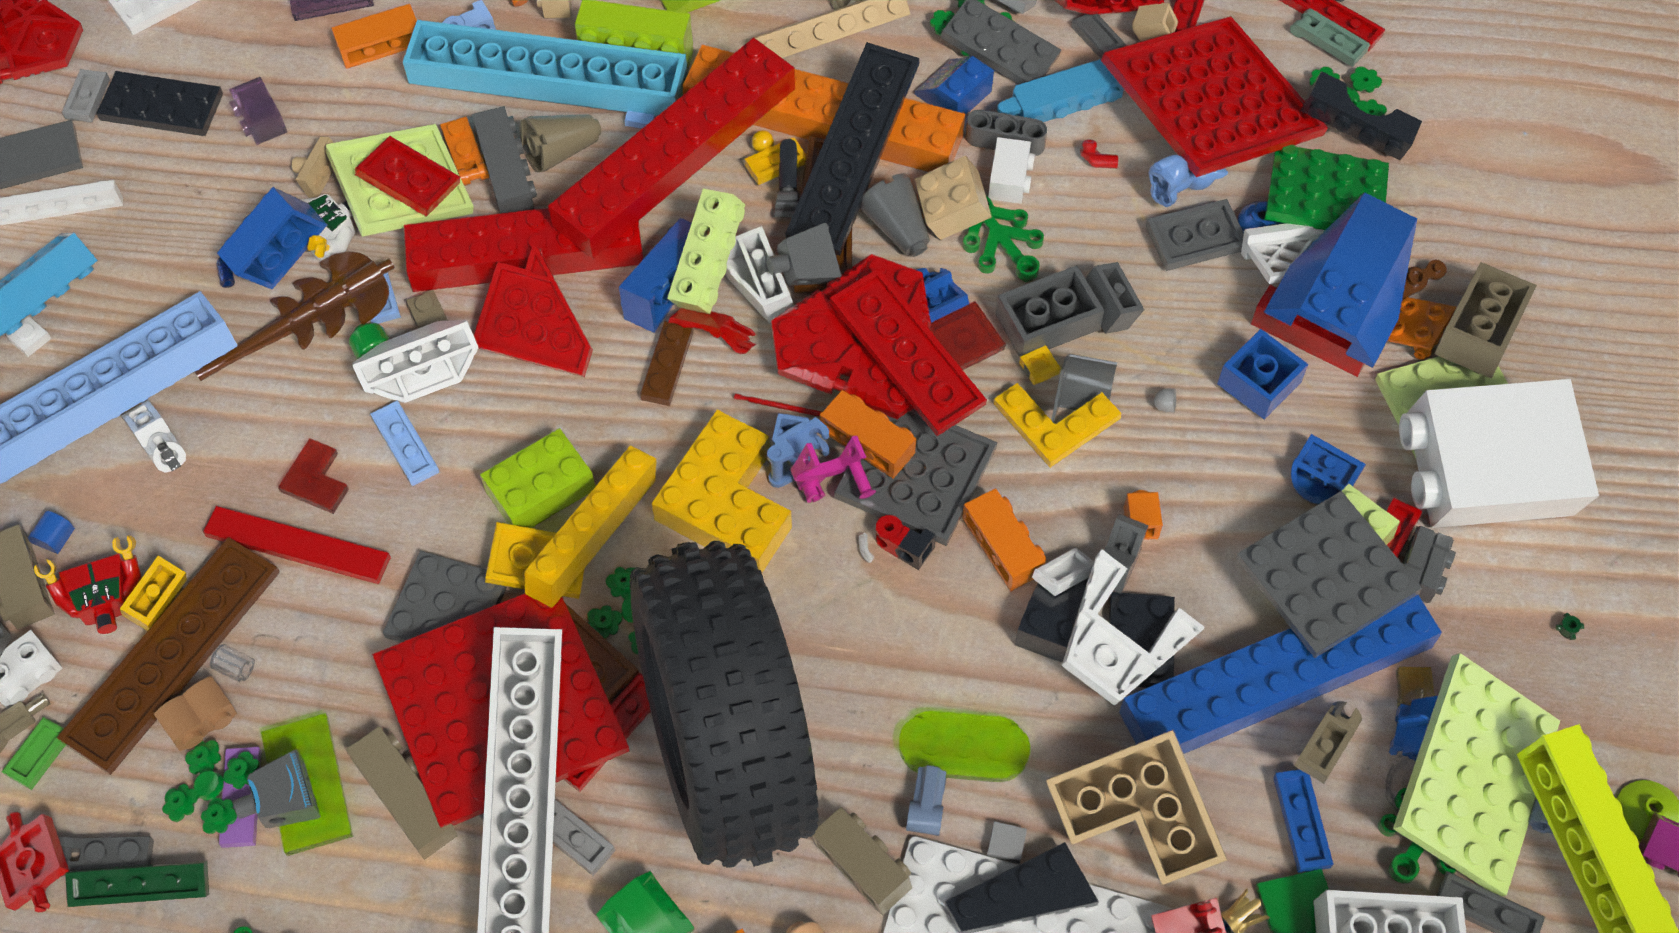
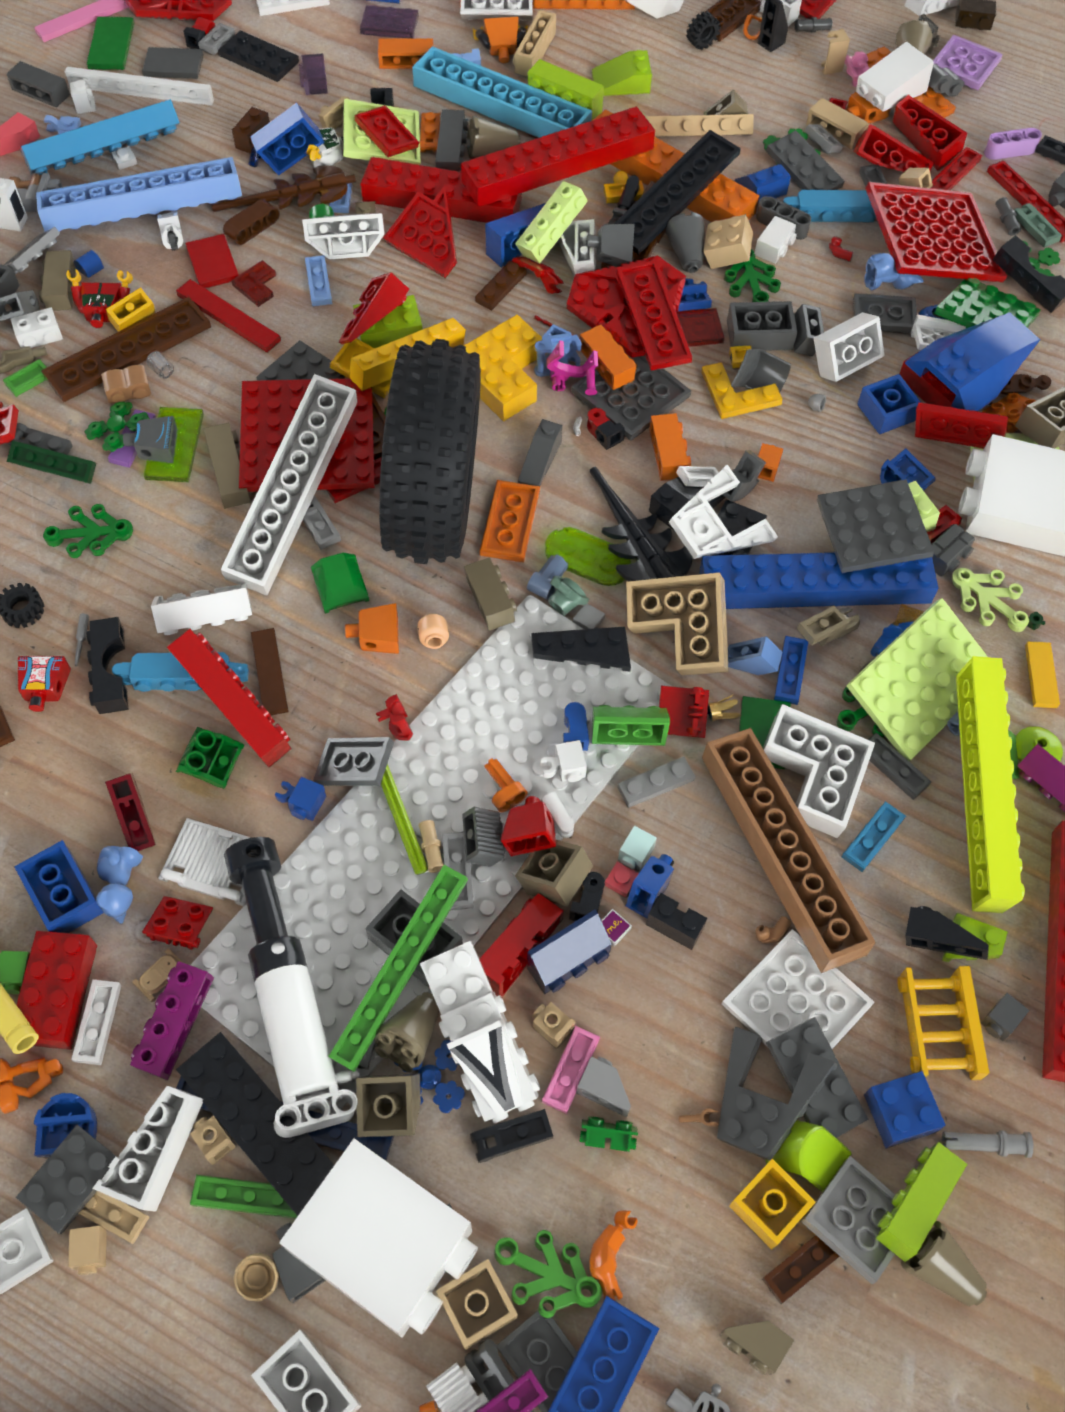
camera: 20 degrees right, 0 degrees up
(54, 94) = (197, 32): none -> leg
(204, 232) = (247, 126): none -> reddish brown brick
(235, 464) = (212, 261): none -> red tile
(267, 382) = (251, 221): none -> reddish brown beam
(374, 120) = (382, 96): none -> black panel
(520, 461) = (378, 299): none -> red wedge
(837, 614) = (541, 453): none -> dark grey slope
(838, 731) = (510, 521): none -> orange tile
(967, 823) = (566, 595): none -> sand green piece
(1063, 728) = (640, 544): none -> black animal
(1178, 307) = (849, 346): none -> white brick
(1250, 819) = (755, 656): none -> medium blue slope
(1290, 35) = (1008, 216): none -> dark grey pin
(1371, 380) = (958, 425): none -> red plate
(1498, 614) = (988, 596): none -> yellowish green plant
(1611, 703) = (1042, 674): none -> yellow tile

